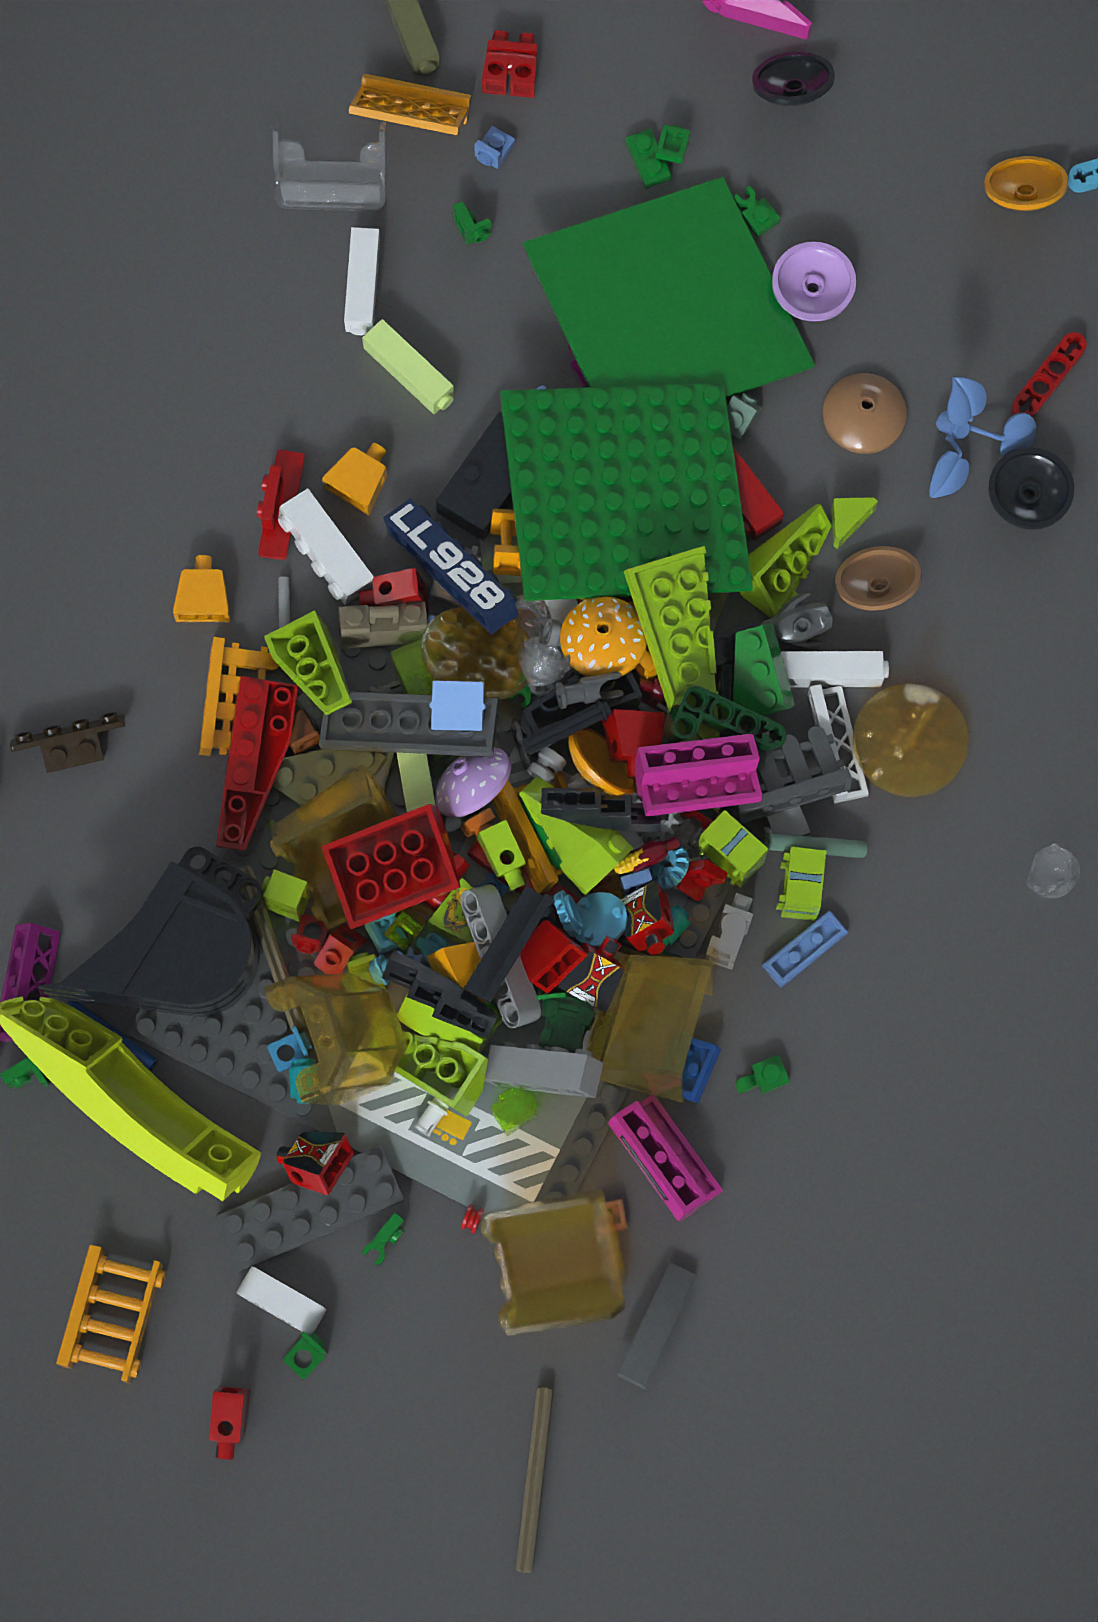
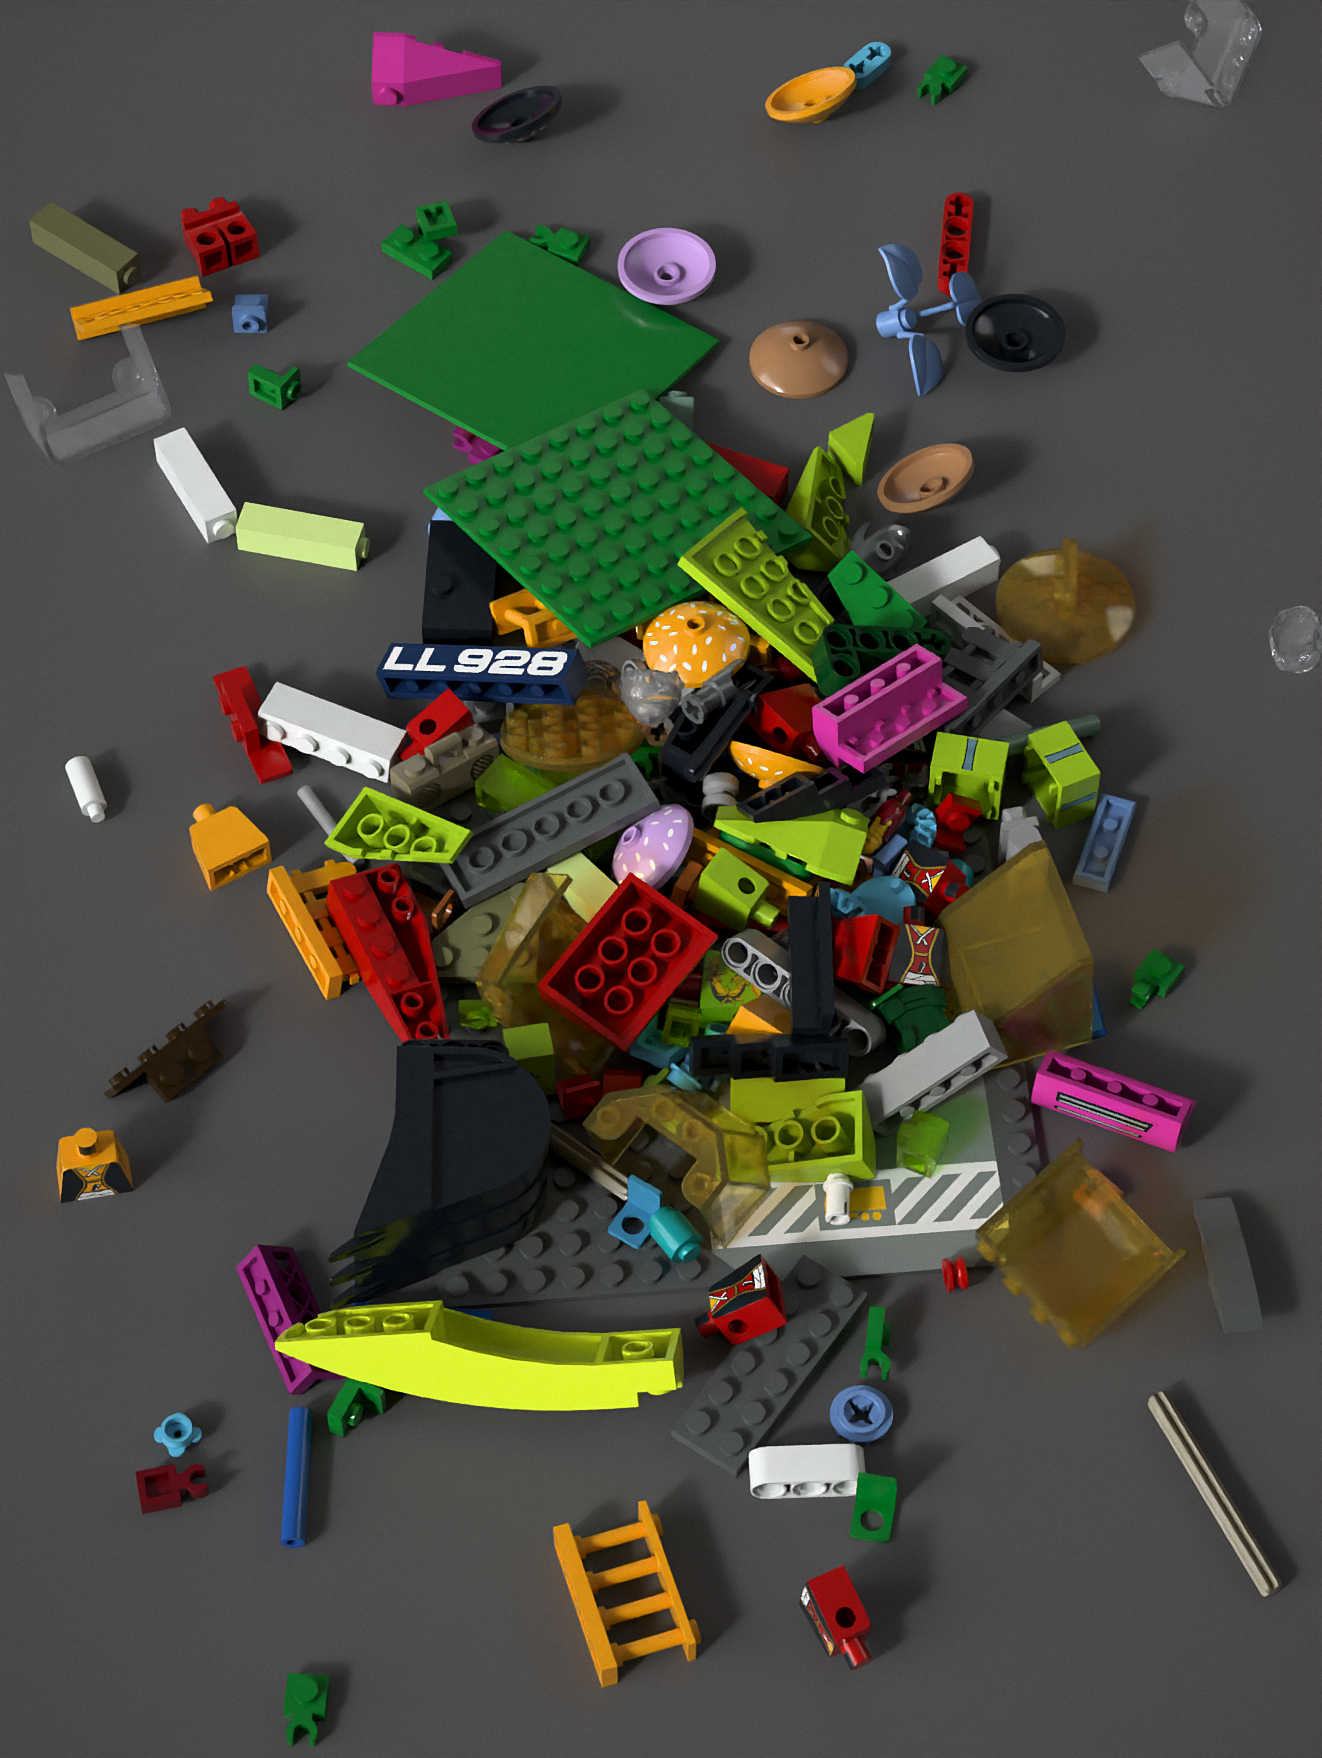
camera: 30 degrees left, 20 degrees down
(139, 492) = (86, 788): none -> white cylinder
(332, 1273) = (861, 1399): none -> medium blue gear
(358, 477) = (319, 658): light orange torso -> none
(457, 705) = (591, 776): light blue piece -> none

